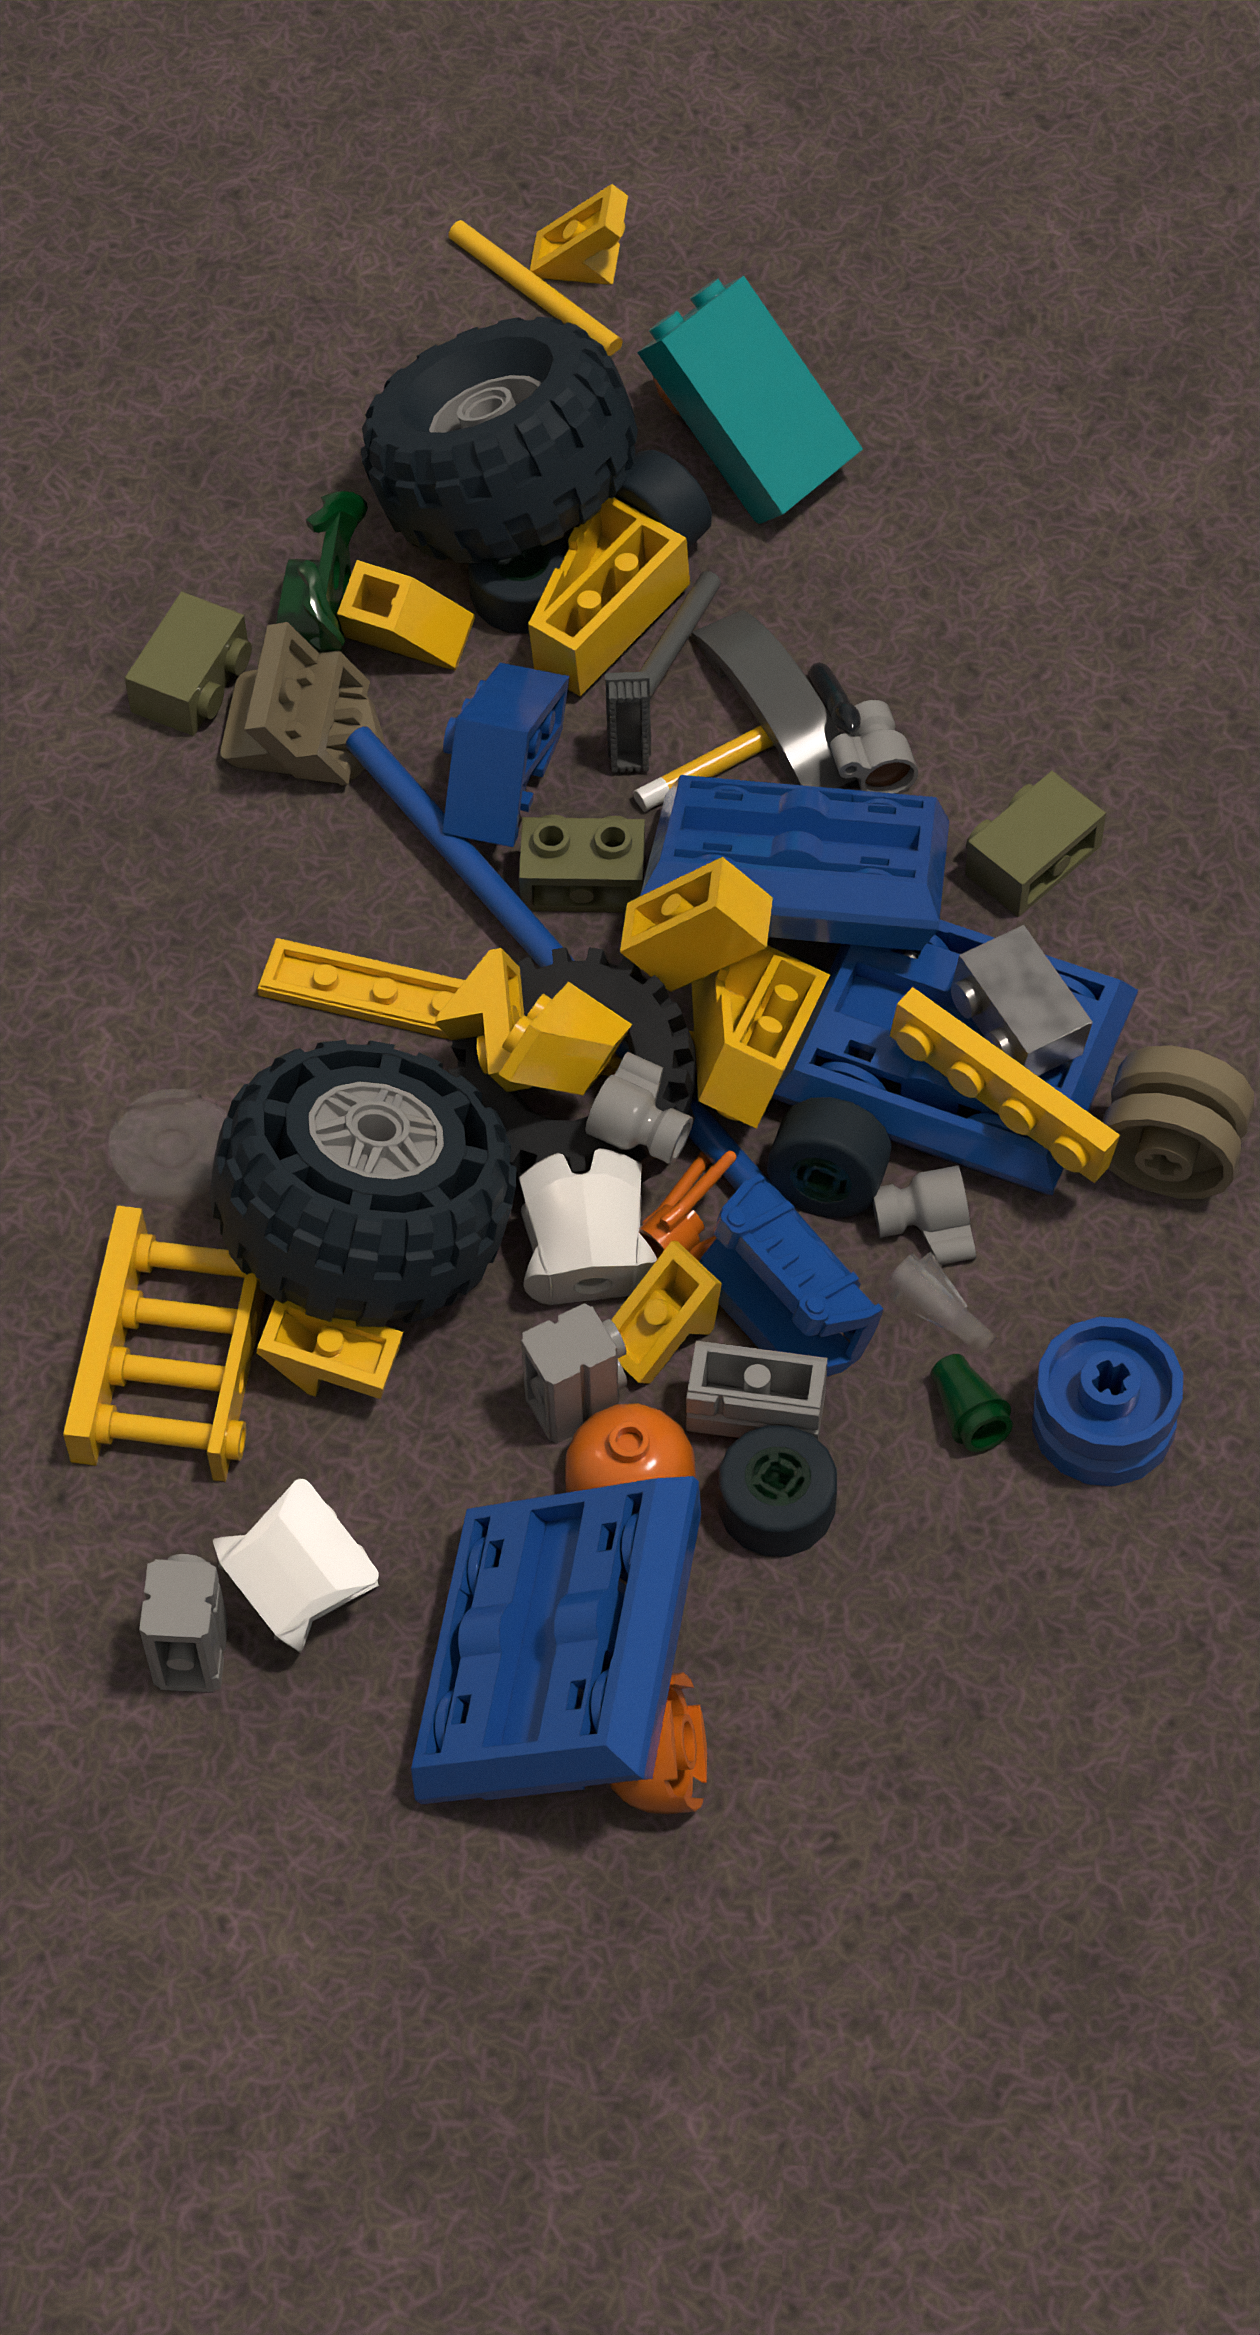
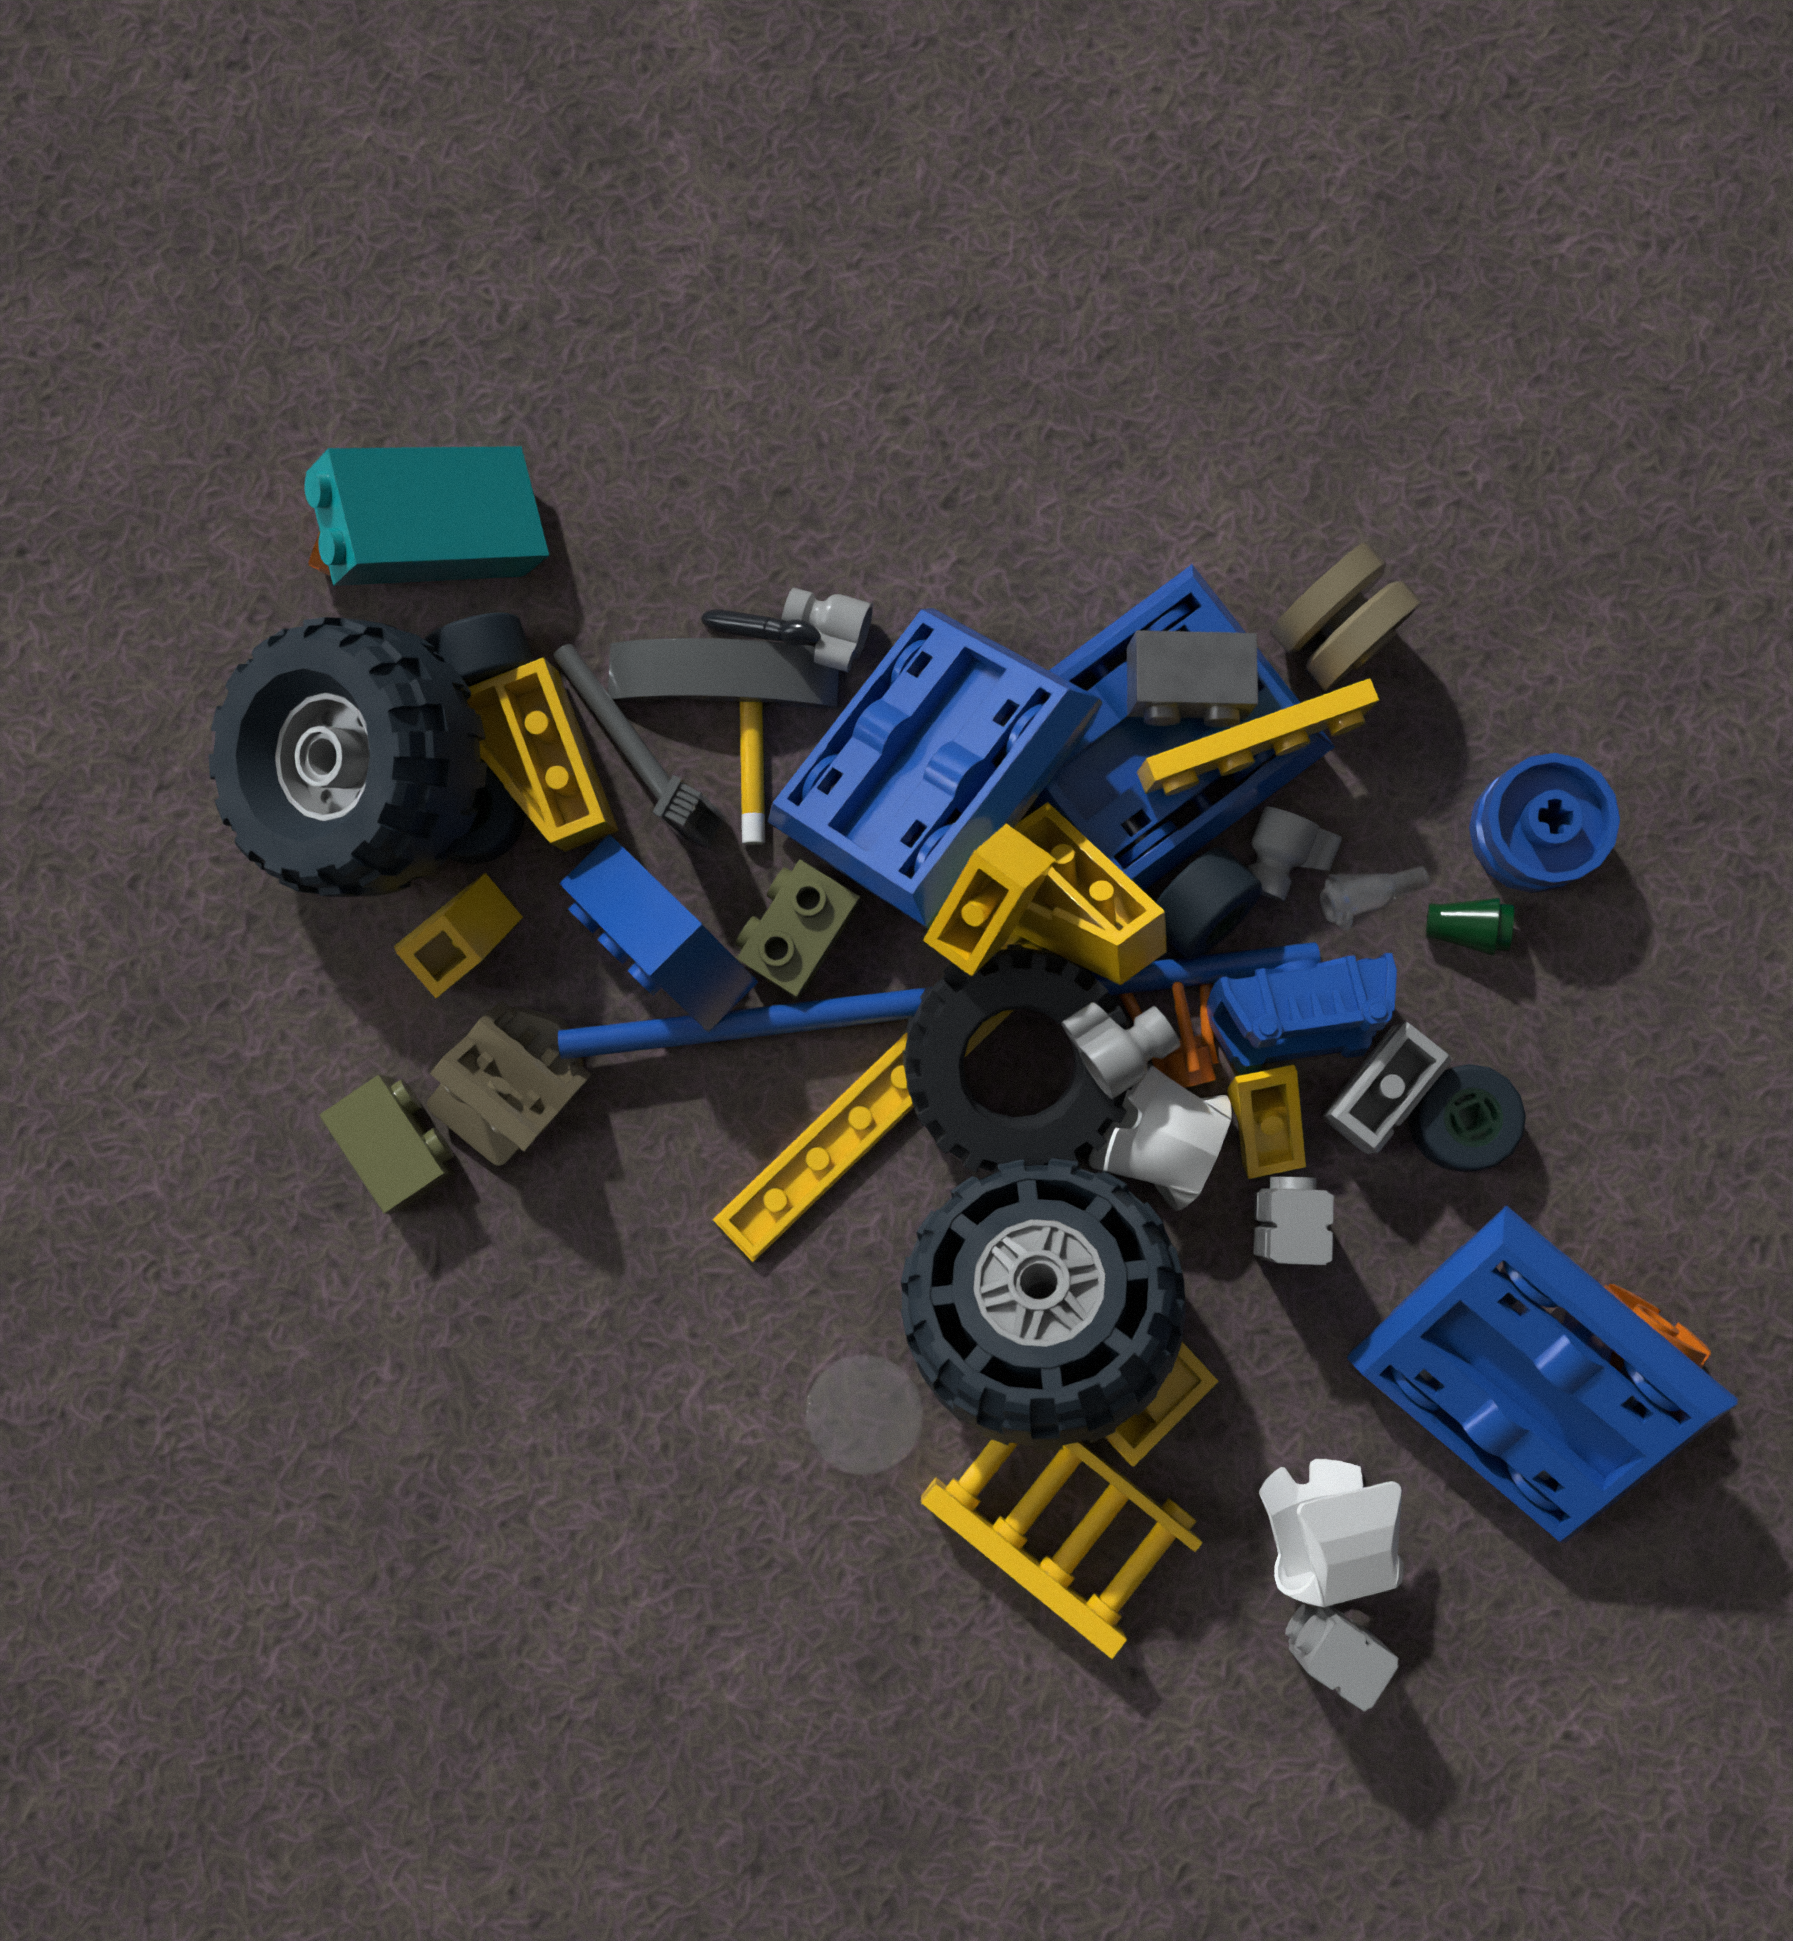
camera: 55 degrees left, 25 degrees up
(316, 587) = (386, 995): dark green piece -> none
(488, 1008) = (958, 1105): yellow slope -> none
(531, 285) = (149, 613): yellow bar -> none
(563, 1042) = (1033, 1071): yellow slope -> none
(583, 241) = (130, 544): yellow slope -> none
(626, 1447) = (1381, 1218): orange cylinder -> none
(1034, 842) = (998, 554): olive brick -> none

